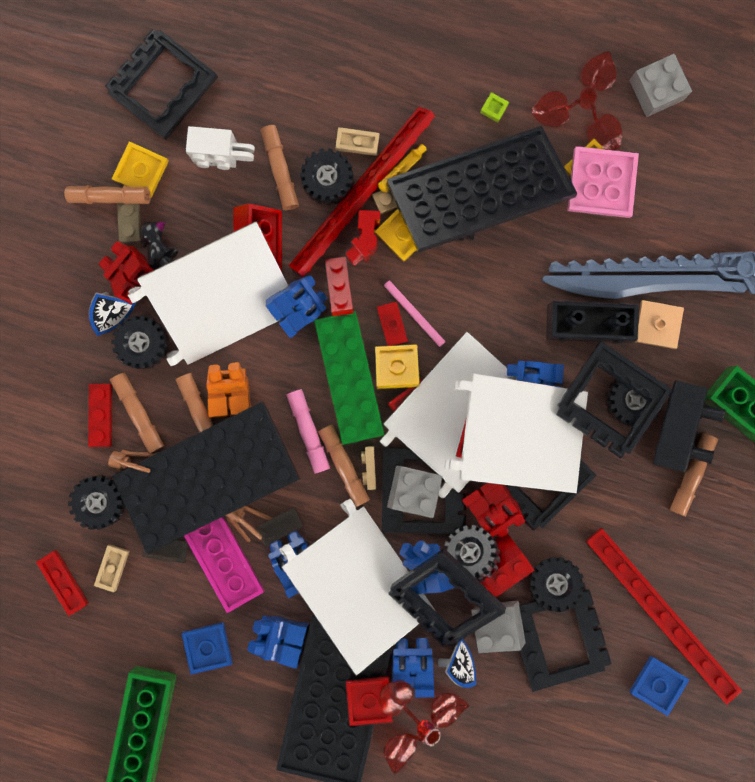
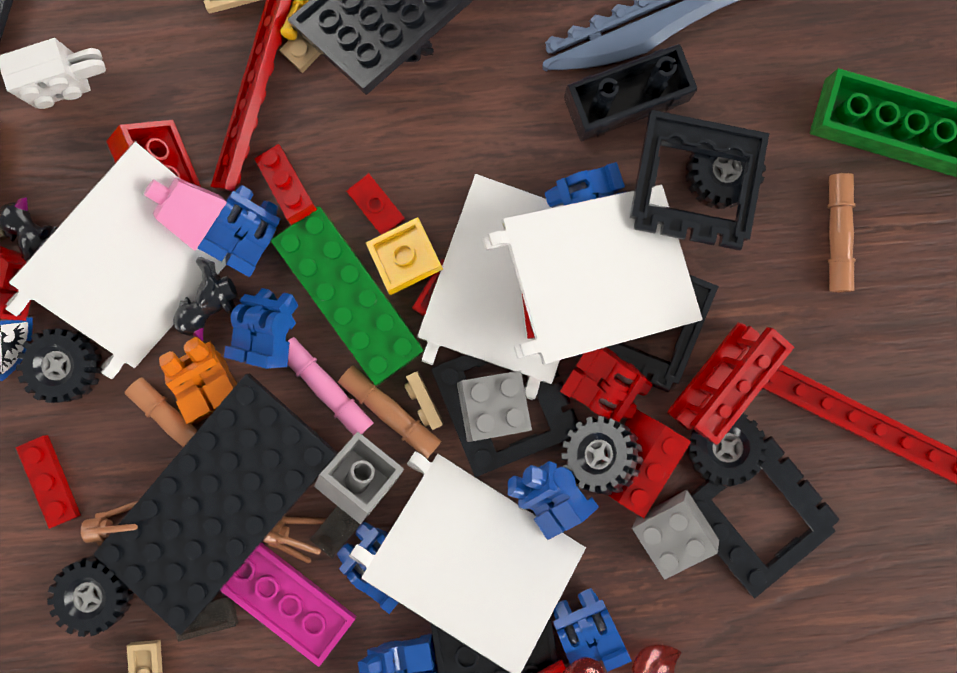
camera: 25 degrees left, 0 degrees up
(137, 413) = (94, 458): nougat piece -> none
(259, 340) = (211, 297): none -> black animal
(269, 278) = (185, 209): none -> bright pink torso
(279, 167) = (145, 65): nougat piece -> none
(283, 376) = (261, 329): none -> blue hips
(306, 500) = (358, 477): none -> light grey brick
(320, 168) = (209, 37): black wheel -> none
(367, 242) = (296, 117): red hips -> none
(396, 236) = (333, 89): yellow plate -> none
(414, 313) = (398, 179): bright pink bar -> none
(460, 578) = (598, 494): black hinge -> none
(460, 666) = (648, 605): shield -> none
(576, 541) = (730, 381): none -> red fence
(659, 324) = (717, 61): light nougat plate -> none
(659, 685) = (912, 521): blue plate -> none
(680, 426) = (799, 176): black piece -> none

